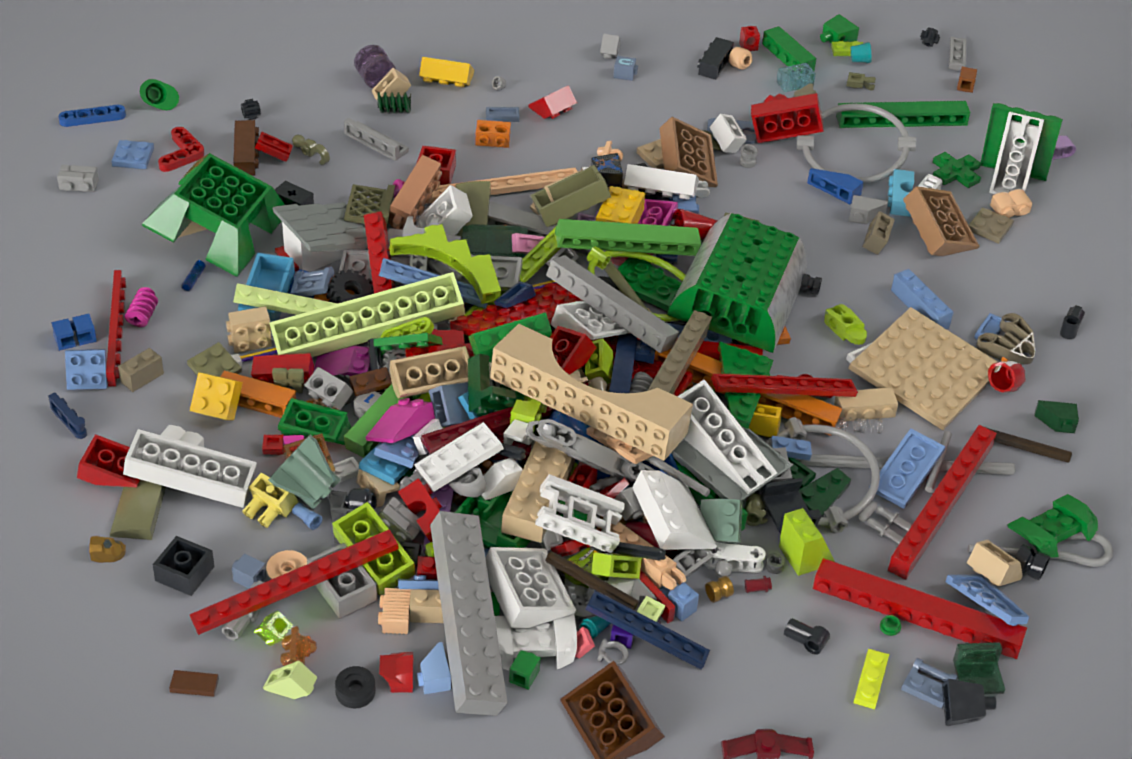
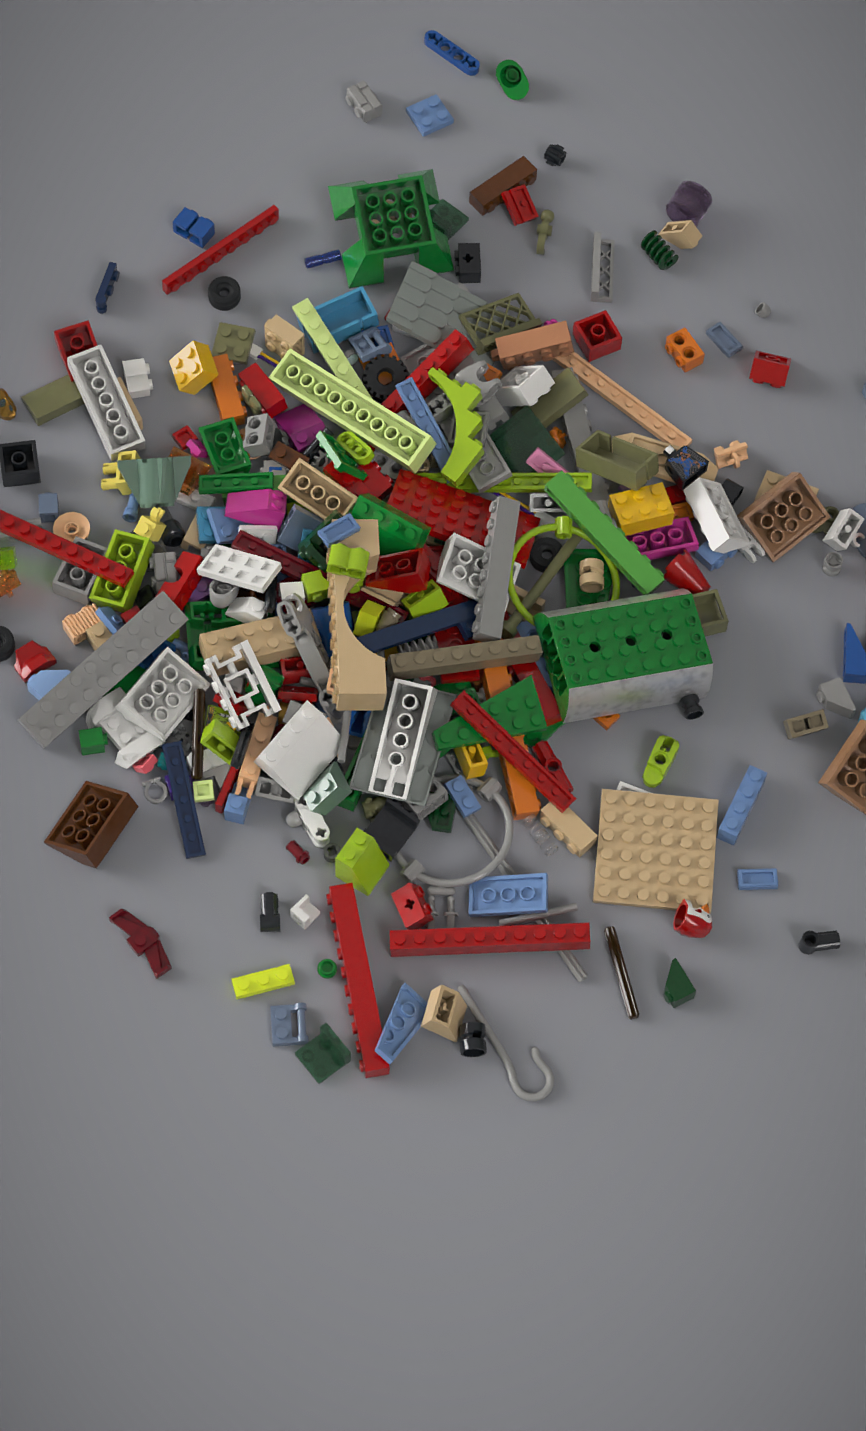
camera: 55 degrees right, 20 degrees up
(86, 369) = (156, 264): medium blue plate -> none
(141, 307) = (253, 251): dark pink piece -> none
(141, 369) = (189, 299): dark tan brick -> none
(160, 339) = (220, 284): none -> black tyre
(192, 151) = (469, 148): red beam -> none
(349, 500) = (151, 525): none -> light yellow brick
(359, 428) = (235, 482): none -> green tile
(446, 72) = (740, 261): yellow slope -> none
(510, 348) = (338, 530): none -> medium blue tile
(516, 295) = (467, 496): dark blue slope -> none
(548, 355) = (348, 561): none -> lime brick
(651, 270) = (591, 575): none -> tan wheel
(720, 588) = (270, 827): pearl gold wheel -> none
(823, 613) = (304, 912): none -> white panel
(825, 490) = (440, 847): dark green wing -> none
(863, 536) = (412, 906): none -> red brick
(965, 702) = (278, 1057): black torso -> none
(1017, 339) = (762, 904): dark tan connector -> none
(1057, 524) = (529, 1038): green piece -> none

